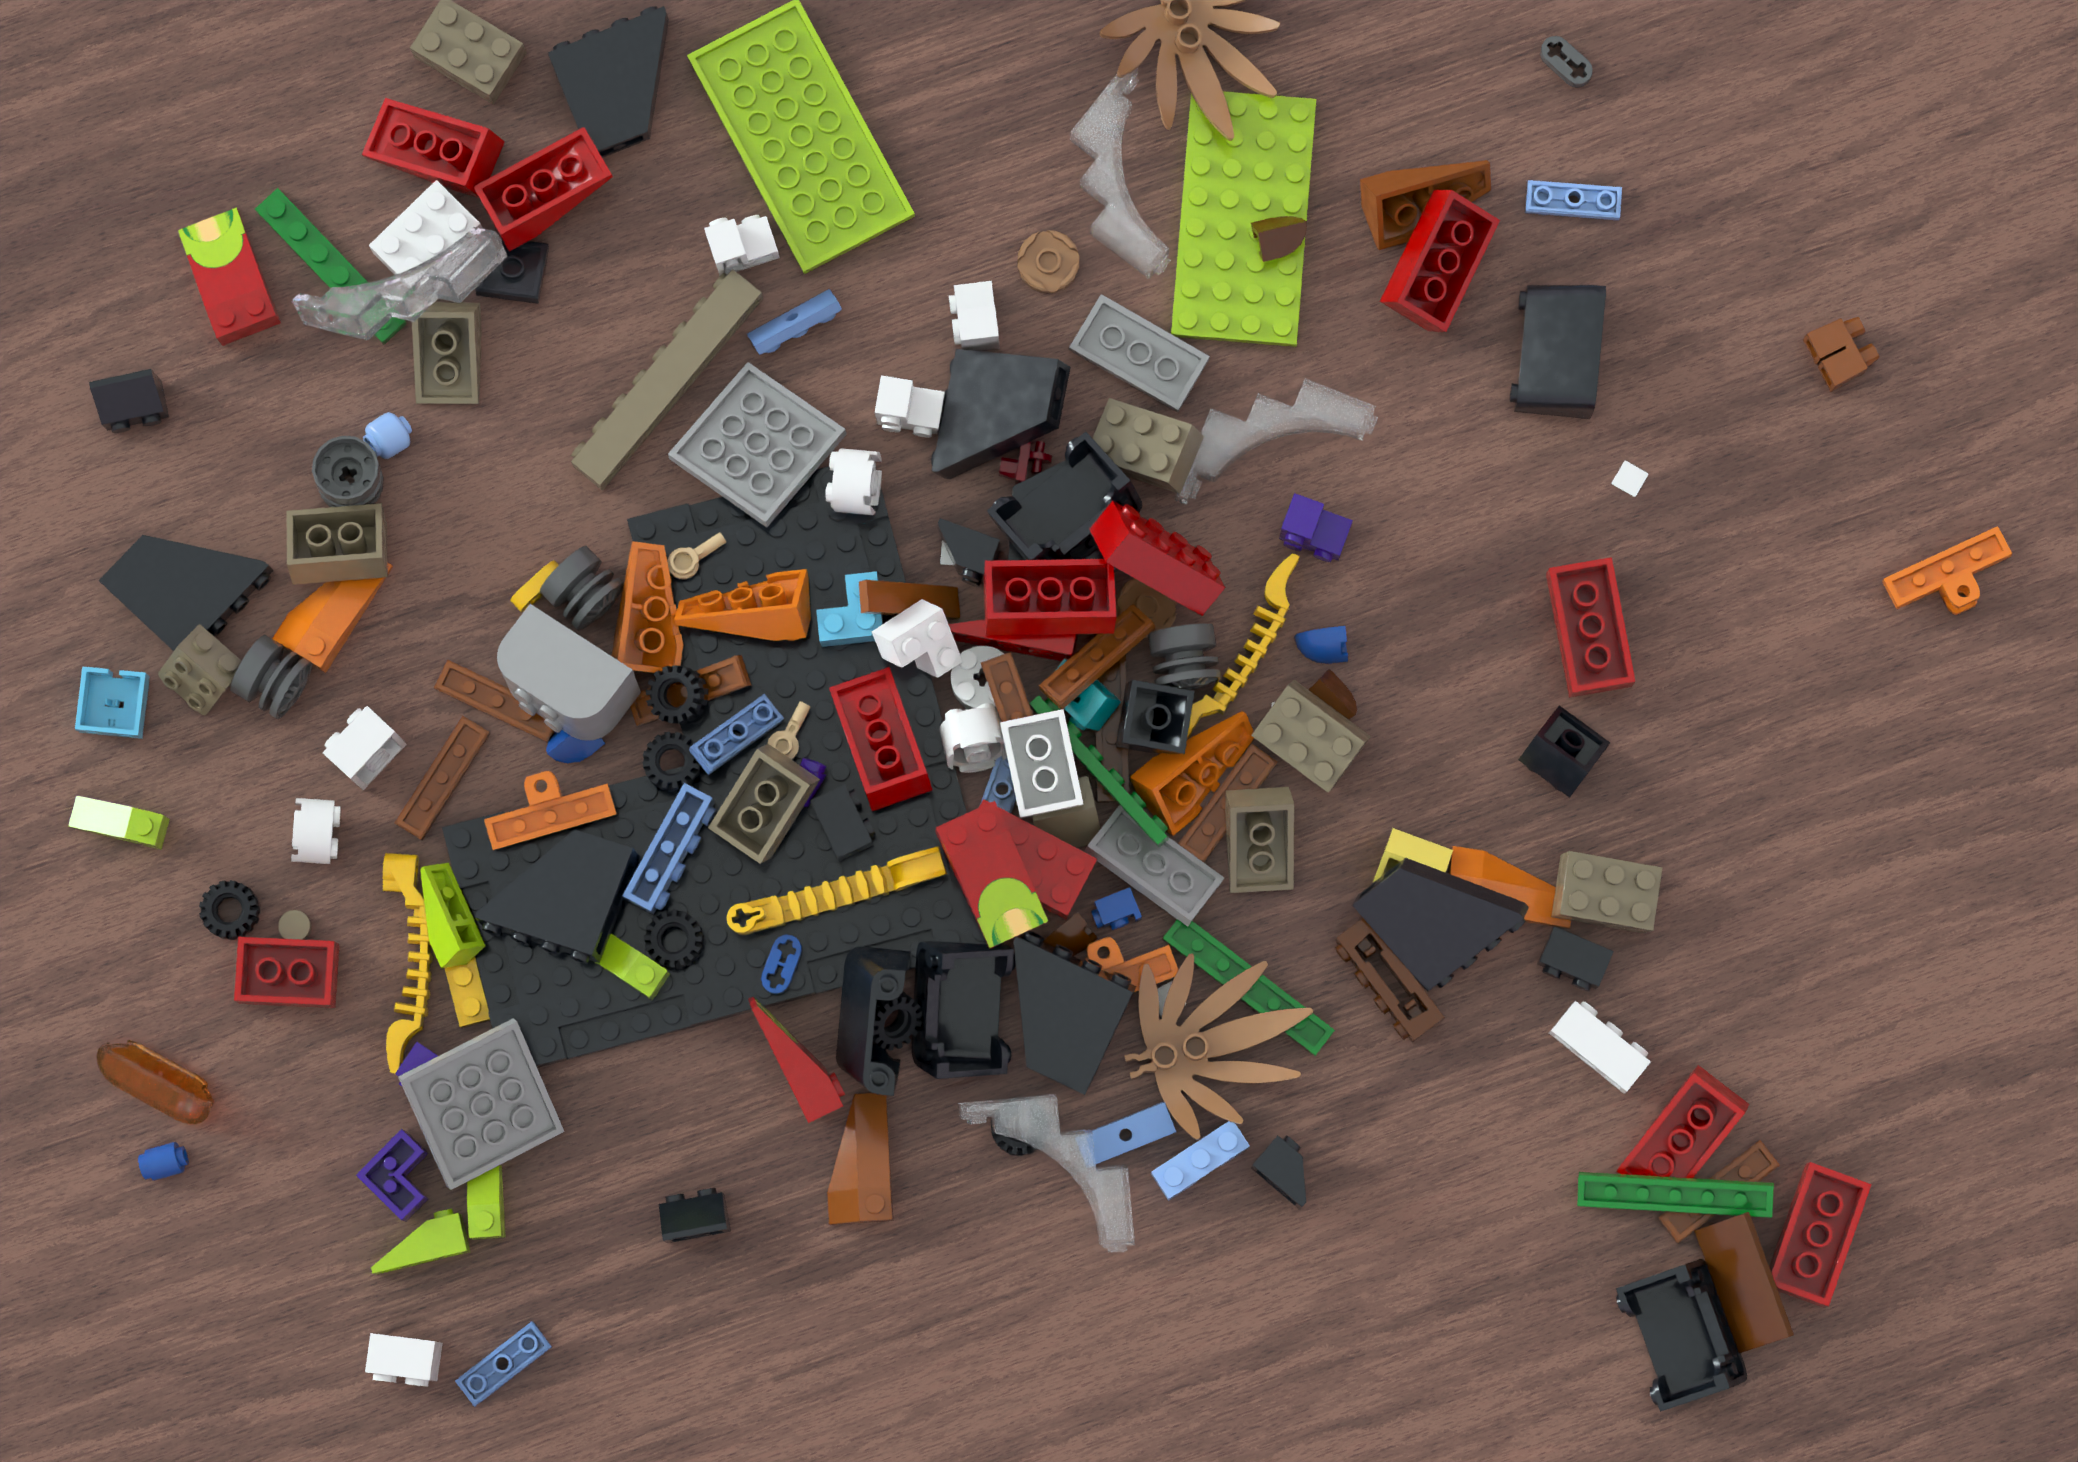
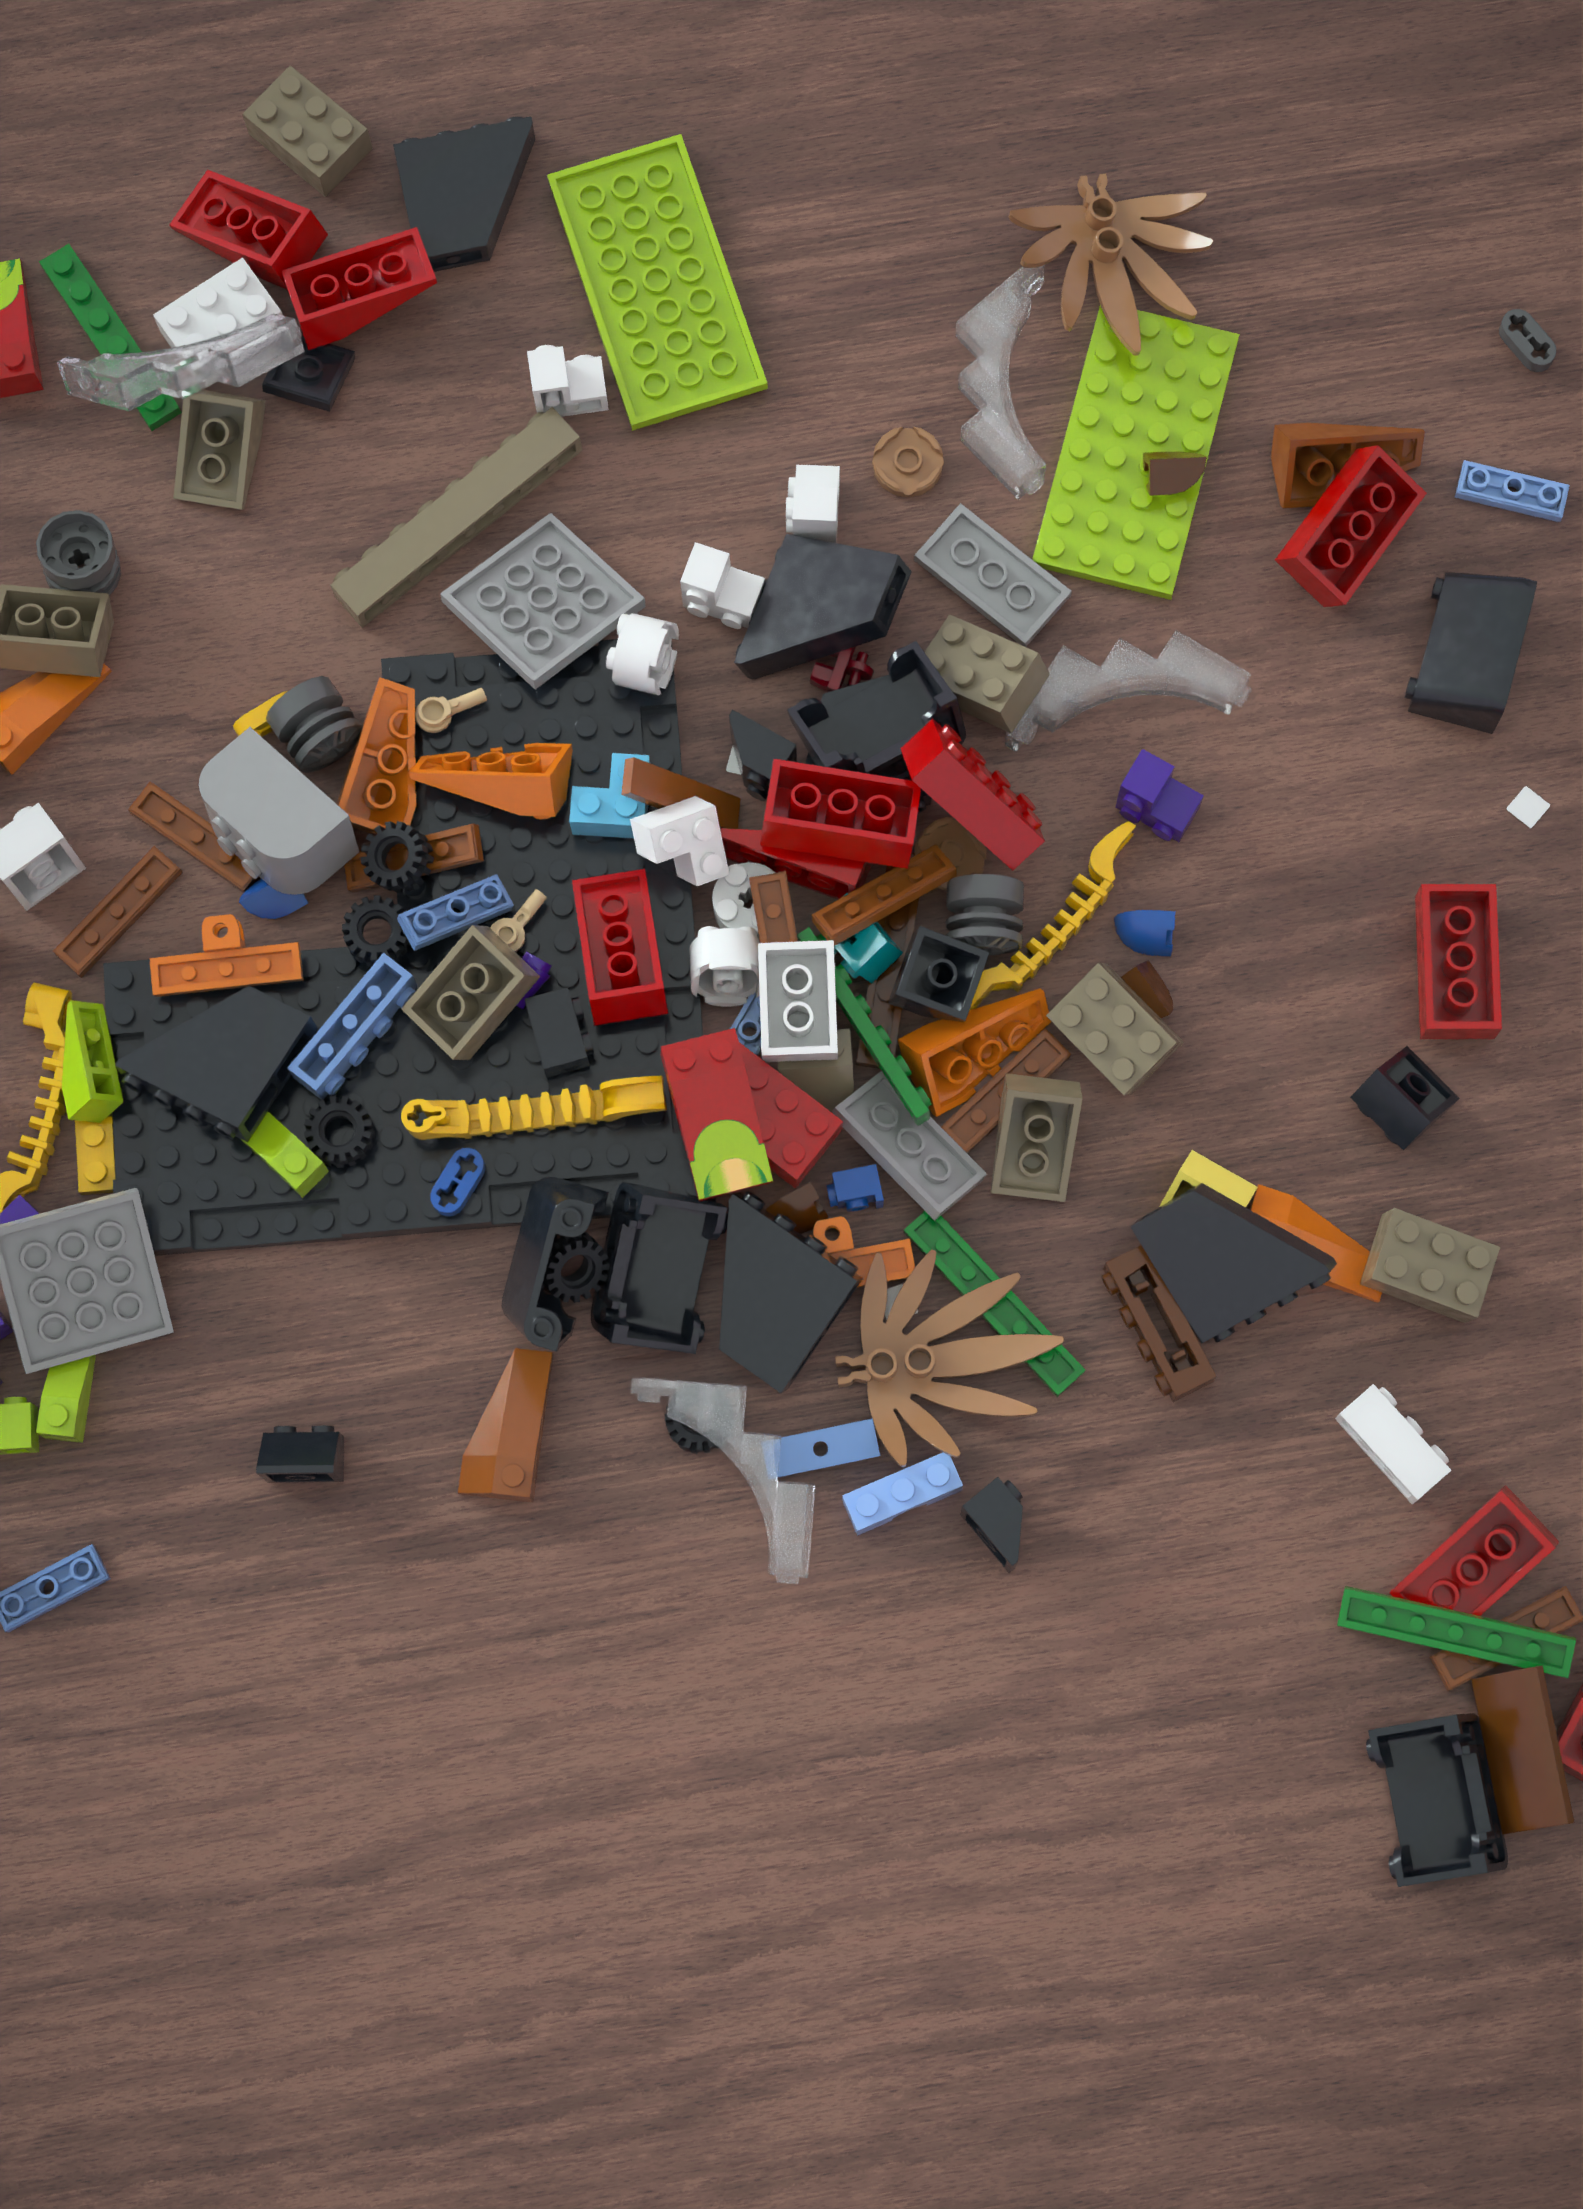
camera: 10 degrees right, 5 degrees down
(388, 435) = (134, 525): light blue head -> none
(794, 322) = (611, 479): medium blue tile -> none
(807, 1076) = (461, 1315): red slope -> none
(1575, 959) = (1379, 1337): black brick -> none

